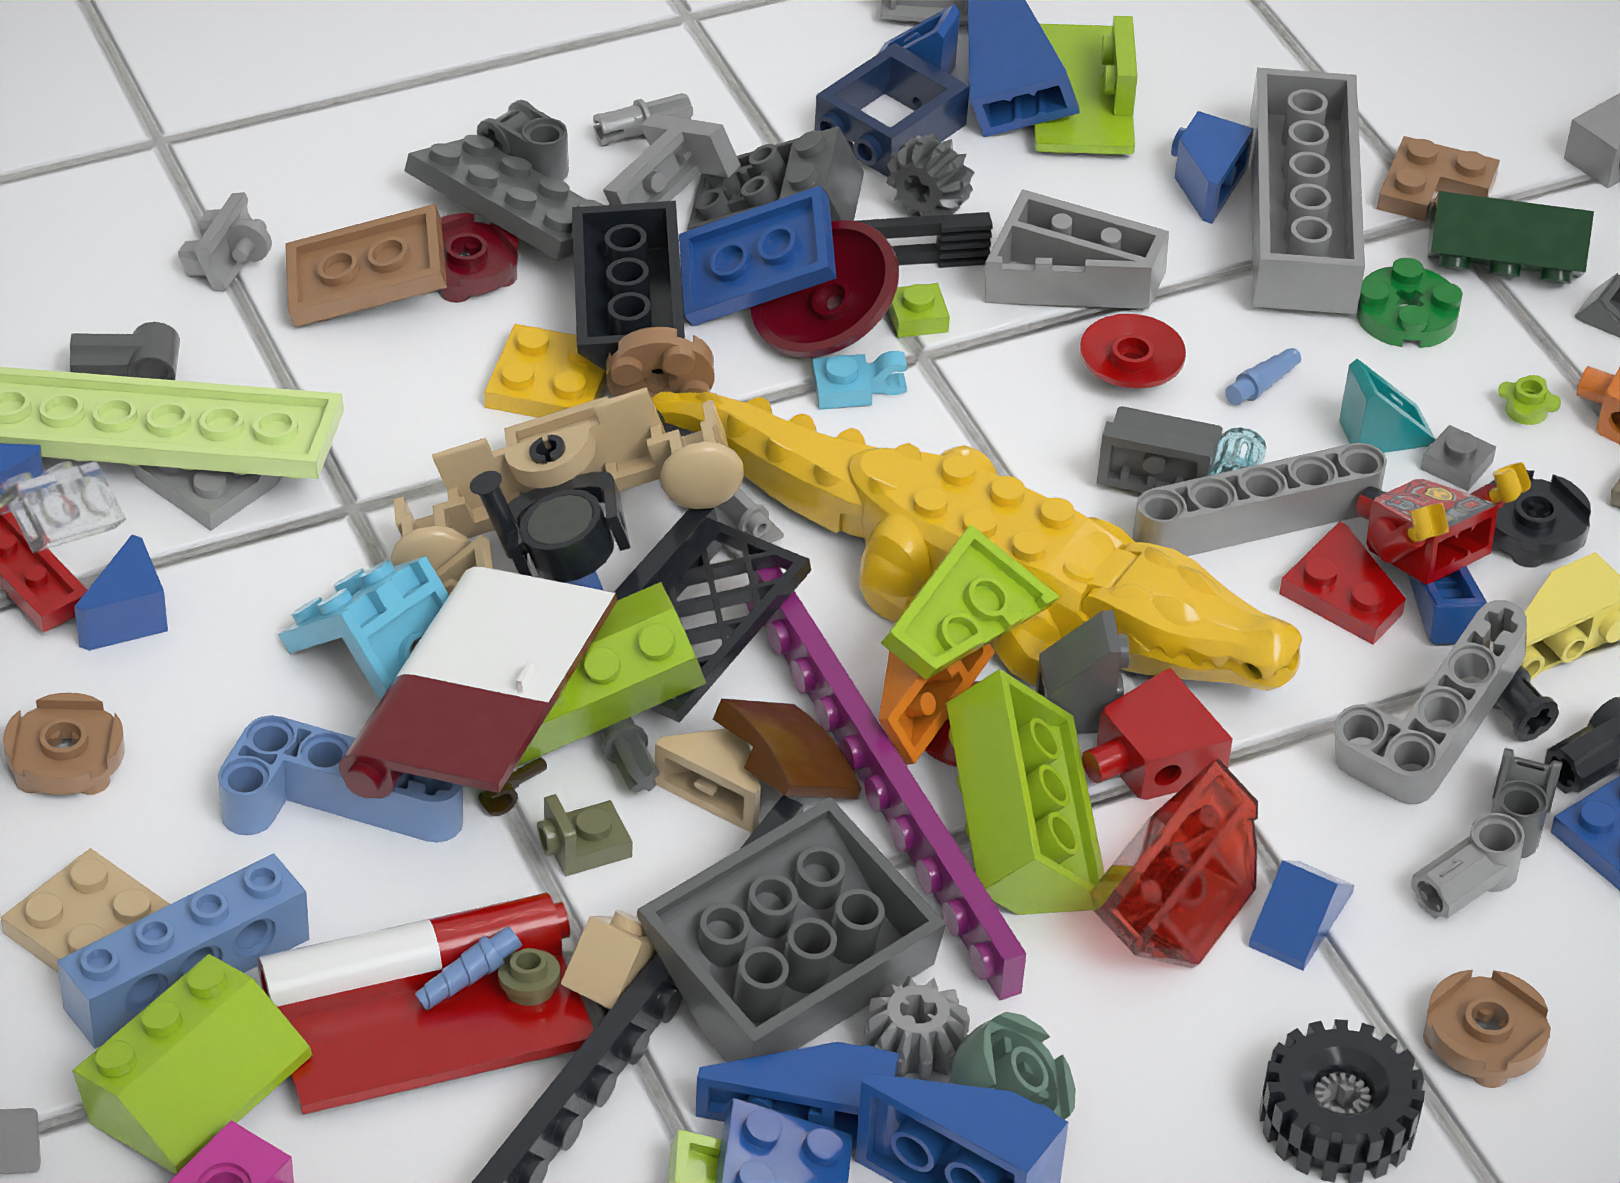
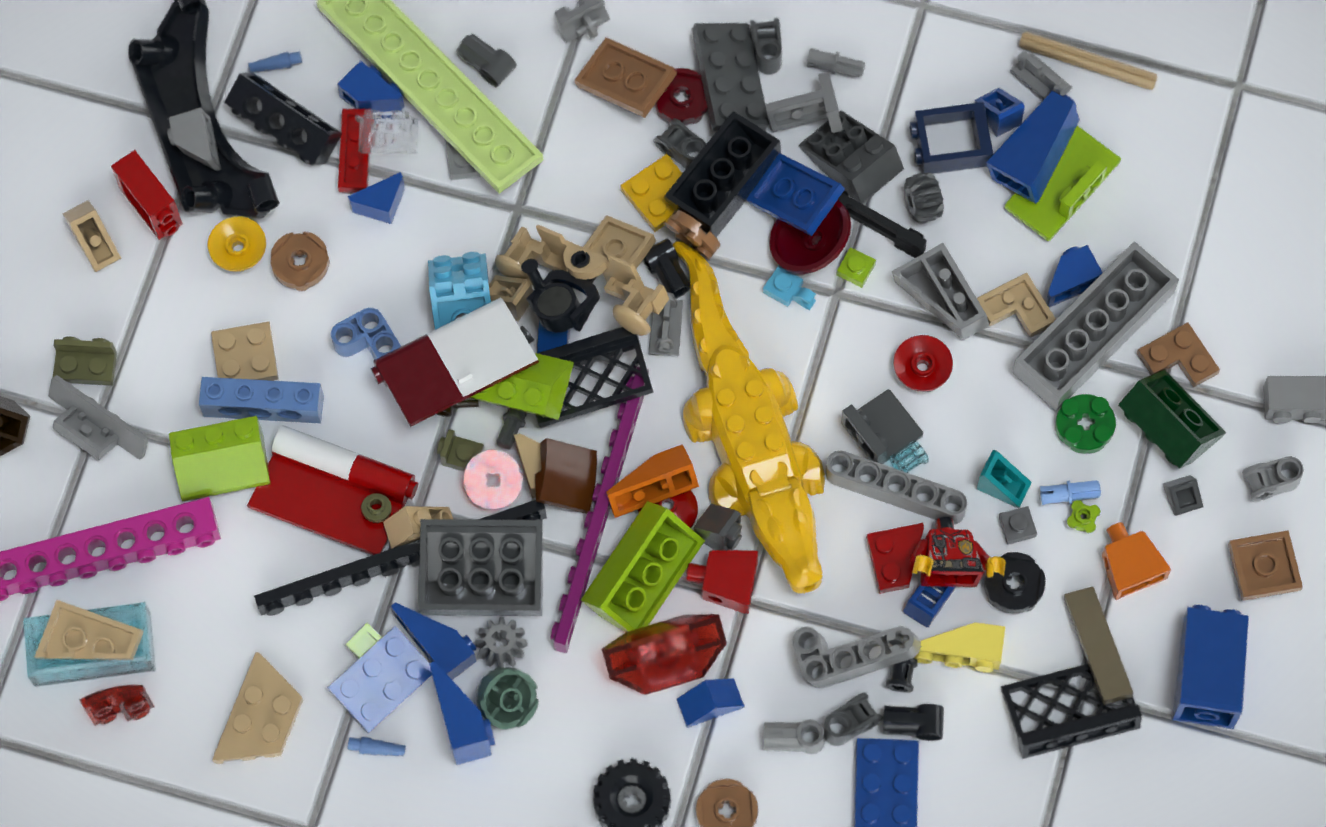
camera: 45 degrees right, 25 degrees up
(472, 965) = (355, 489): medium blue animal -> none
(532, 299) = (679, 143): none -> dark grey piece
(679, 805) = (475, 481): none -> clear red plate
(965, 605) = (685, 463): lime wing -> none
(1192, 224) = (1018, 298): none -> tan plate
(1258, 379) = (971, 417): medium blue animal -> none
(1480, 381) = (1070, 492): none -> light blue axle

